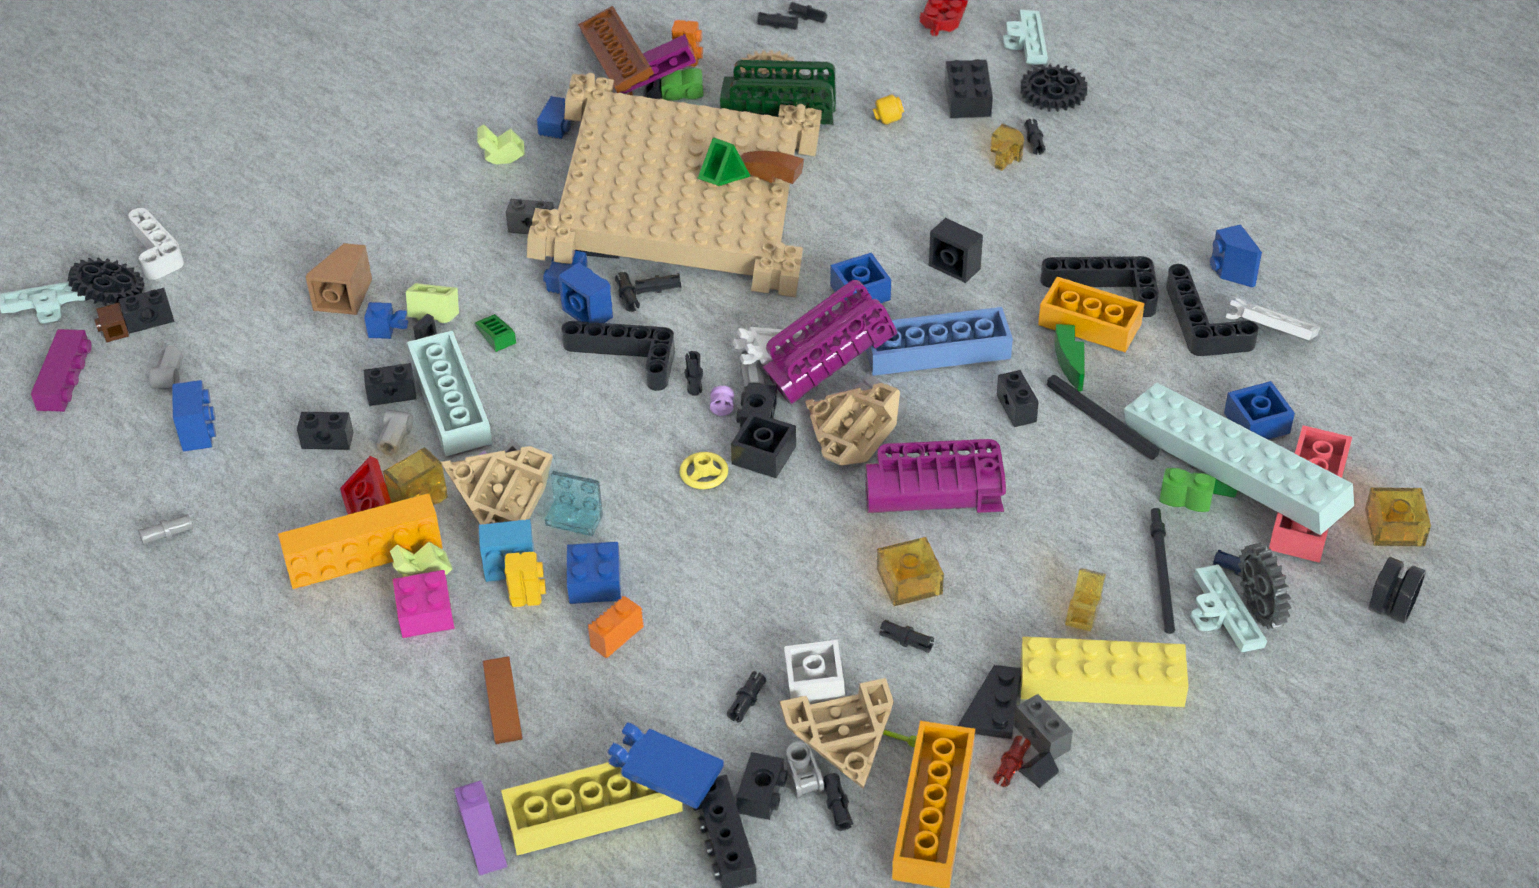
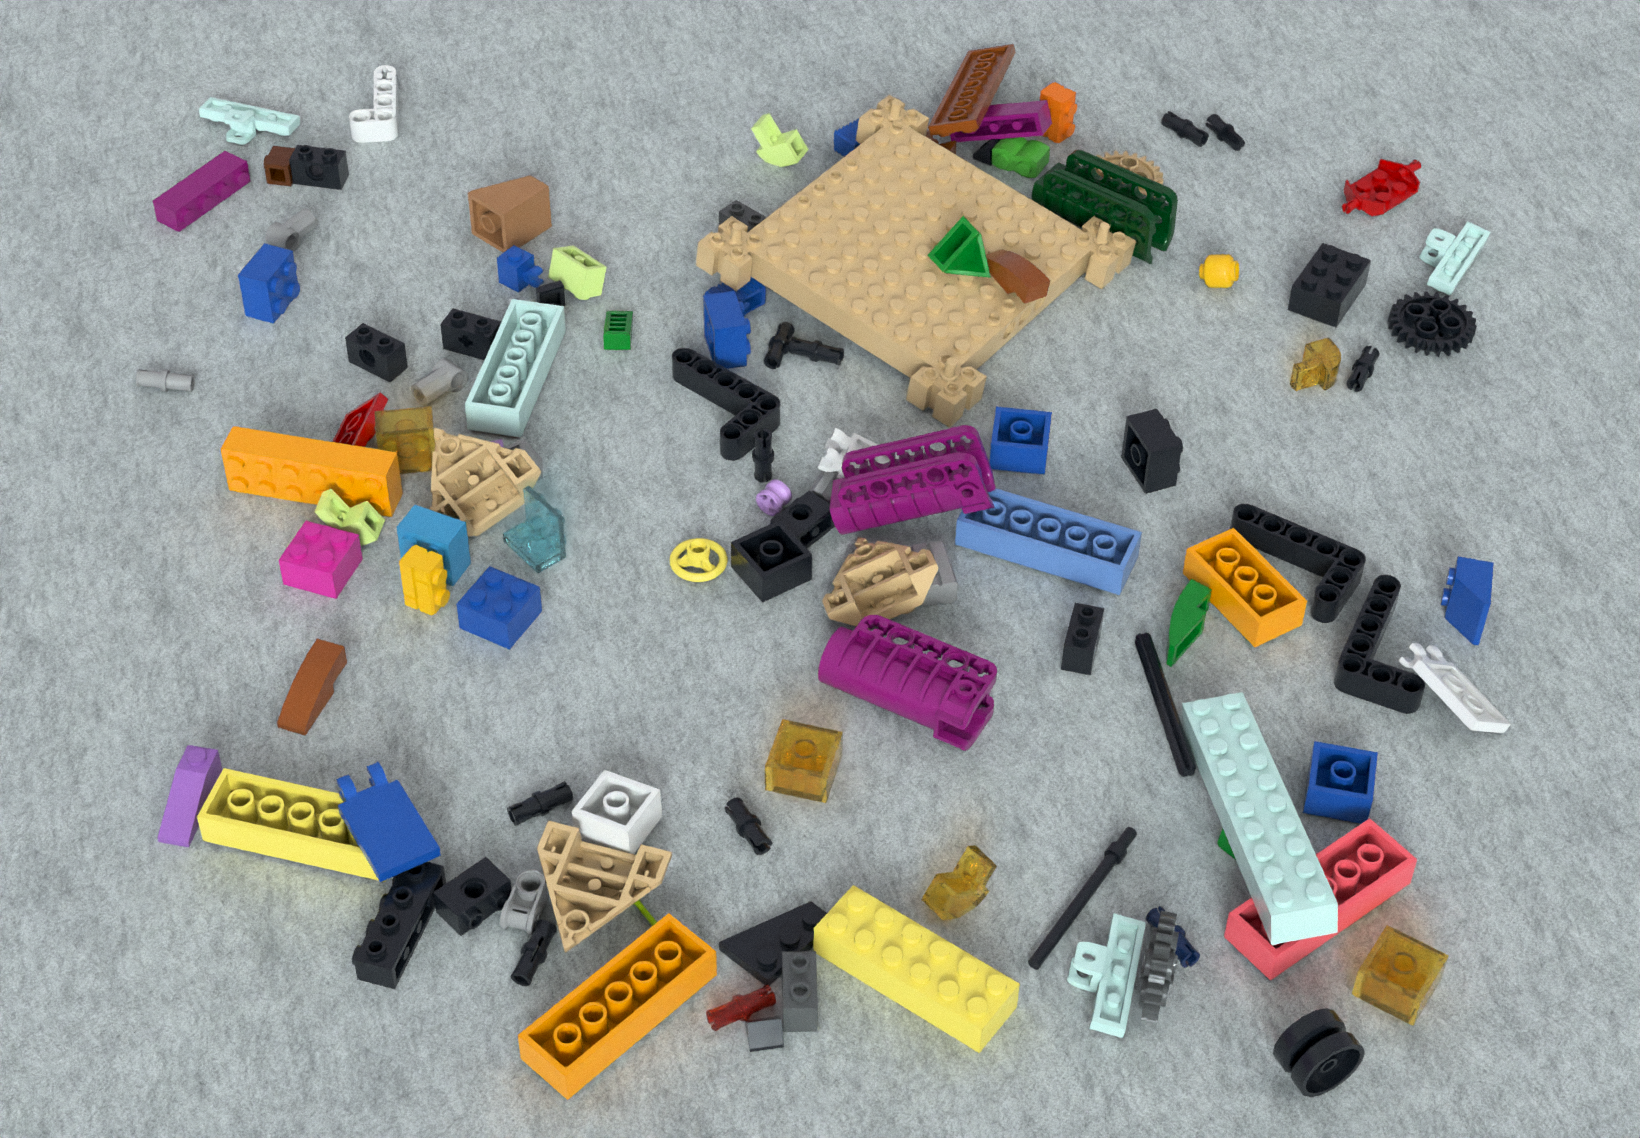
camera: 30 degrees right, 0 degrees up
(104, 281) = (304, 122): black gear -> none
(615, 626) = (473, 669): orange brick -> none
(1187, 489) = (1184, 826): bright green brick -> none

